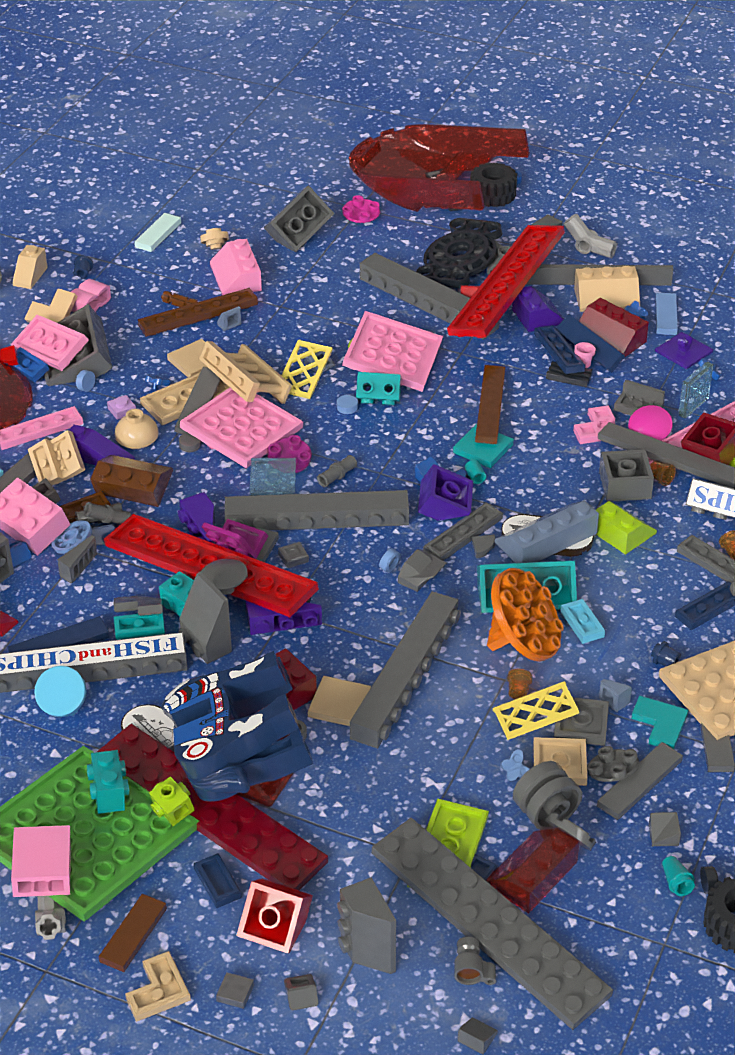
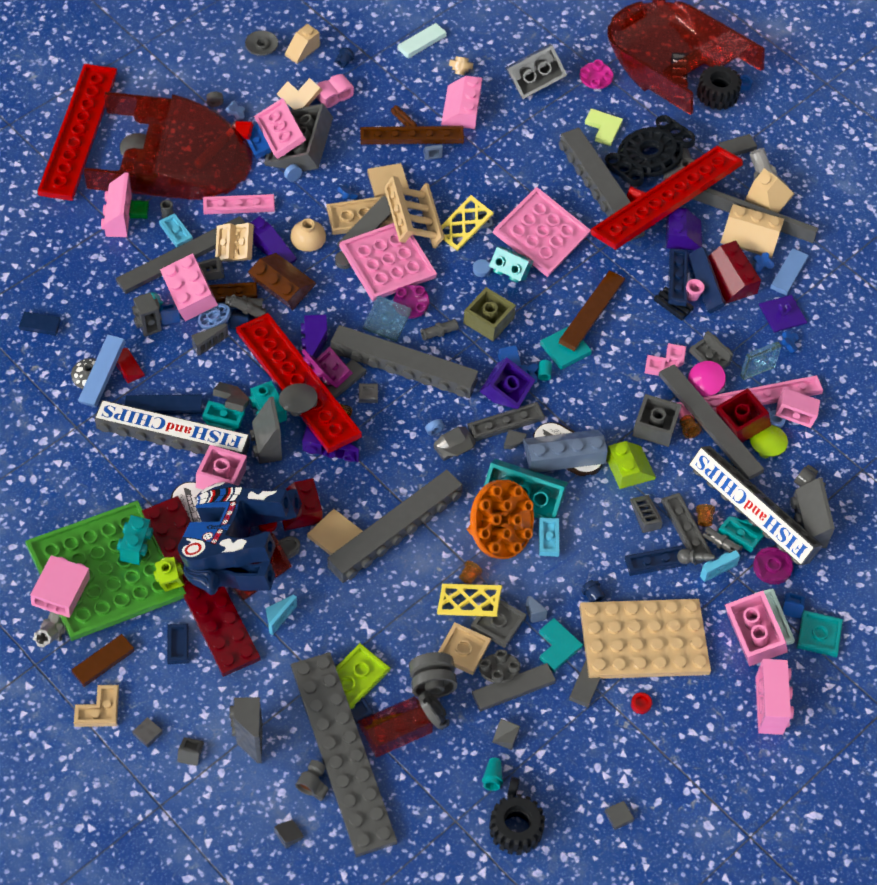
camera: 20 degrees right, 15 degrees up
(60, 691) = (141, 450): medium azure tile -> none
(120, 406) = (309, 207): lavender plate -> none
(166, 672) = (220, 466): none -> bright pink brick
(274, 914) = (200, 687): red slope -> none
(322, 802) = (280, 612): none -> medium azure slope
(385, 437) = (489, 314): none -> olive brick
(400, 247) = (607, 125): none -> yellowish green tile
(514, 766) = (428, 640): medium blue piece -> none
(603, 248) = (769, 192): none -> tan slope
(676, 569) = (646, 526): none -> dark grey slope

